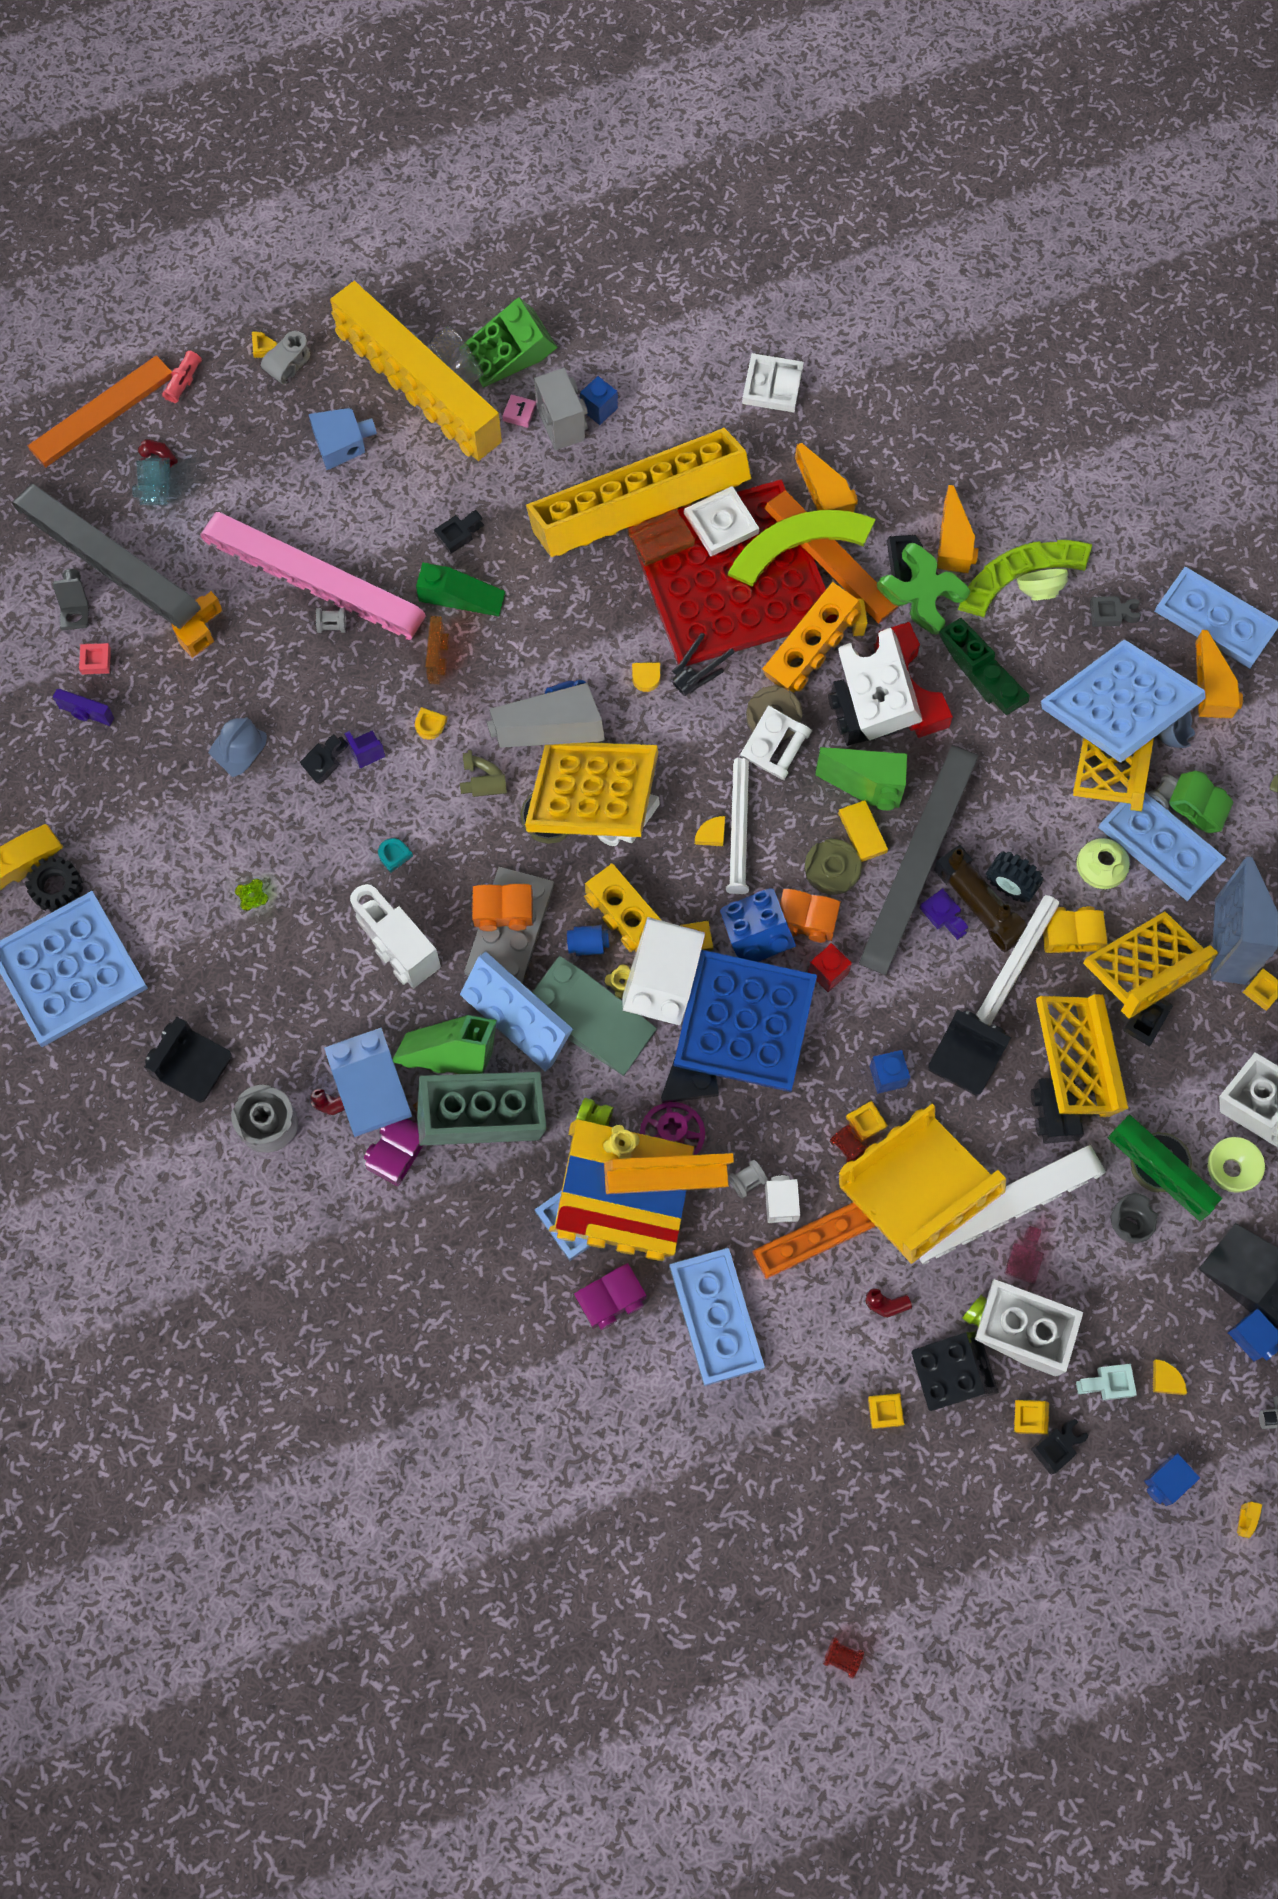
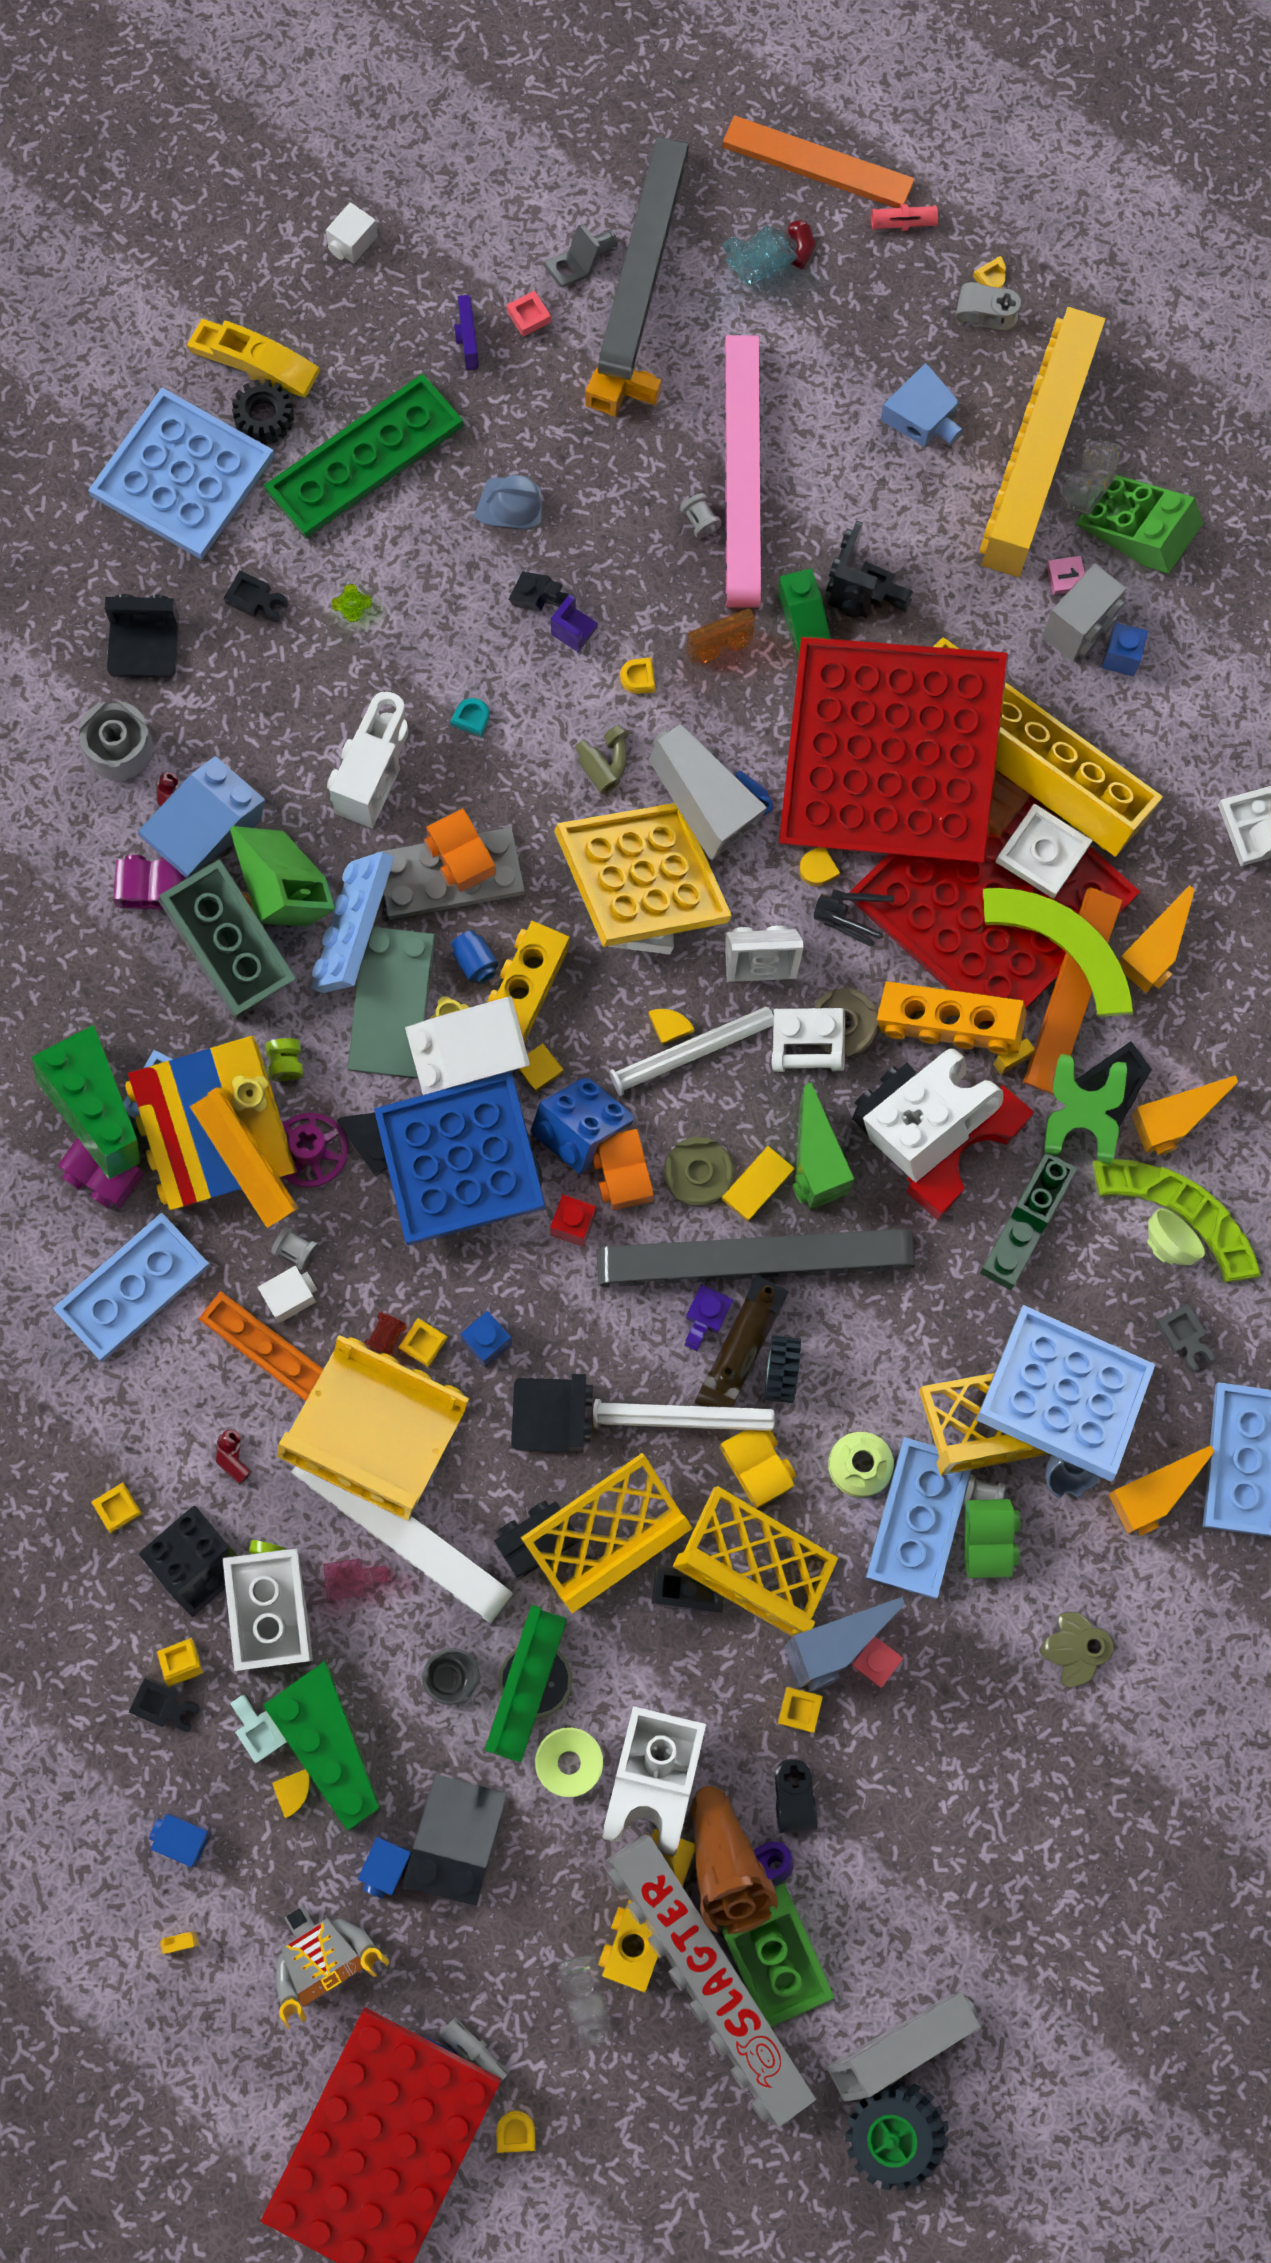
camera: 60 degrees right, 5 degrees up
(136, 829) = (363, 455): none -> green plate
(201, 965) = (252, 595): none -> black plate
(445, 549) = (849, 588): none -> black bracket
(556, 1272) = (87, 1097): none -> green wedge
(596, 573) = (893, 749): none -> red plate
(696, 737) = (762, 954): none -> white slope
(1145, 1334) = (321, 1736): none -> green wedge

